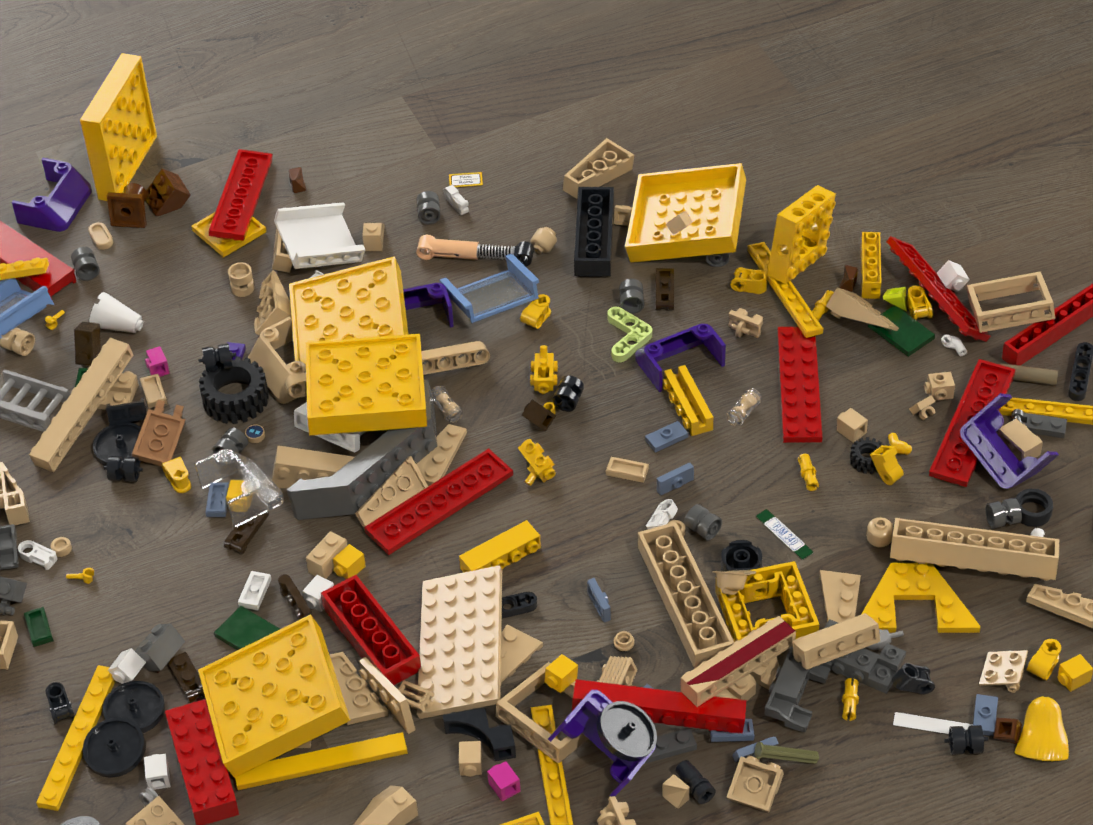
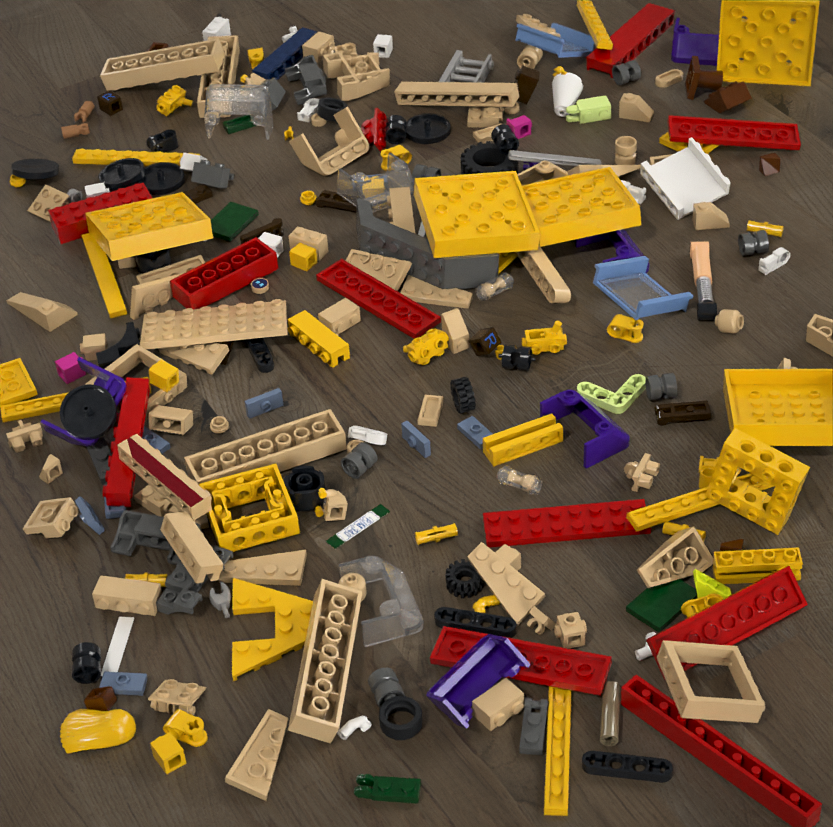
camera: 85 degrees right, 5 degrees down
(39, 608) = (238, 100): none -> clear windscreen
(50, 535) = (329, 106): none -> black tyre
(114, 493) = (375, 129): none -> red bracket
(126, 412) = (457, 121): black hinge -> none
(142, 521) = (350, 146): none -> tan windscreen
(146, 300) = (589, 110): none -> yellowish green hinge
(156, 267) = (634, 108): none -> tan slope
(159, 435) = (437, 141): medium nougat tile -> none
(229, 558) = (308, 197): none -> yellow plate
(245, 333) = (555, 159): none -> light grey axle
(254, 590) = (267, 214): white plate -> none
(388, 605) = (260, 285): none -> tile
(402, 199) = (769, 228): none -> yellow pin
(422, 700) = (157, 307): tan tile -> none
(466, 179) = (812, 267): sticker -> none
(466, 530) = (340, 316): none -> tan brick
(521, 431) = (456, 330): none -> tan slope
(594, 231) = (748, 349): black brick -> none
(615, 430) = (463, 394): none -> black tyre
(679, 222) = (752, 390): tan slope -> none
(699, 786) = (60, 479): black axle -> none
(732, 581) = (263, 466): tan piece -> none
(767, 542) = (334, 505): none -> tan piece
(785, 753) = (78, 532): olive axle -> none
(875, 711) = (126, 595): none -> tan brick
(885, 420) = (506, 583): none -> tan wing
(887, 464) = (443, 587): yellow leg -> none
(893, 502) = (400, 614): none -> clear windscreen
(913, 679) = (162, 624): black piece -> none
(917, 452) = (476, 619): none -> black beam
(953, 276) = (754, 637): white brick -> none

